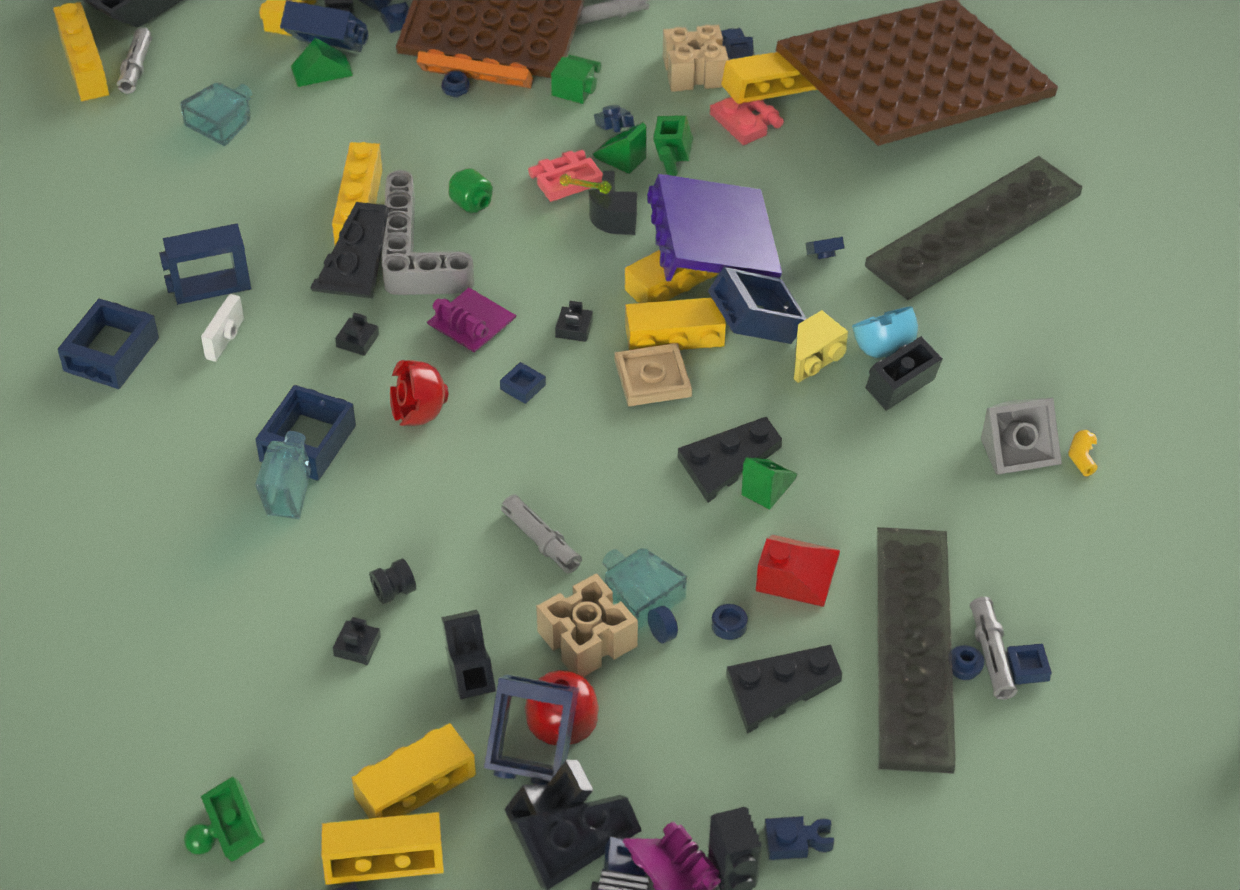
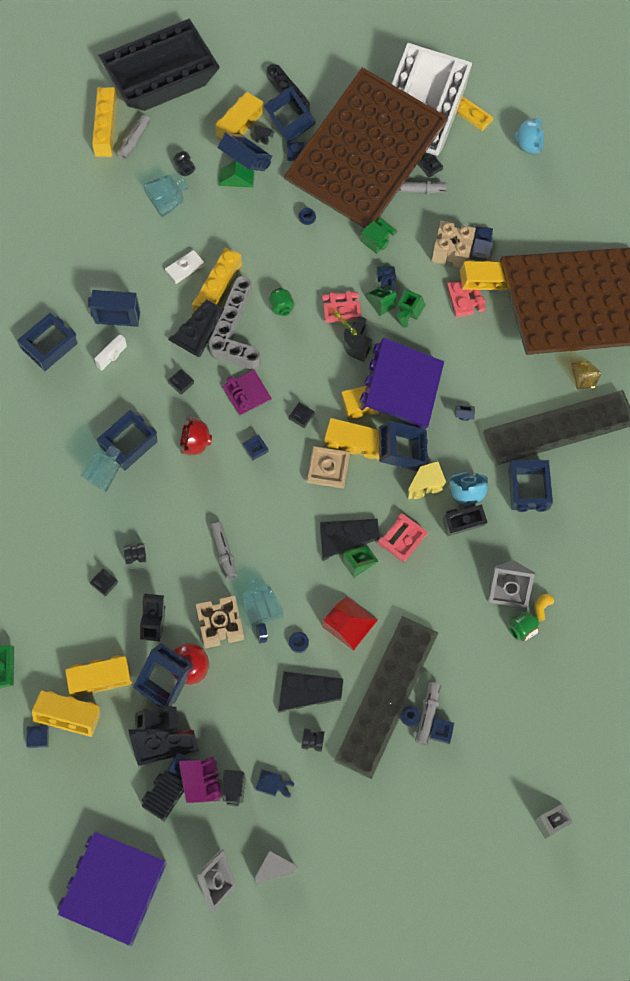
camera: 20 degrees right, 20 degrees up
(231, 69) = (184, 163): none -> black wheel
(292, 193) = (184, 267): none -> white plate
(483, 70) = (328, 213): orange plate -> none
(824, 745) = (312, 739): none -> black wheel
(828, 434) = (408, 540): none -> coral plate
(965, 283) = (526, 467): none -> dark blue window
(976, 156) = (585, 375): none -> clear yellow slope
(1072, 483) = (524, 626): none -> green head

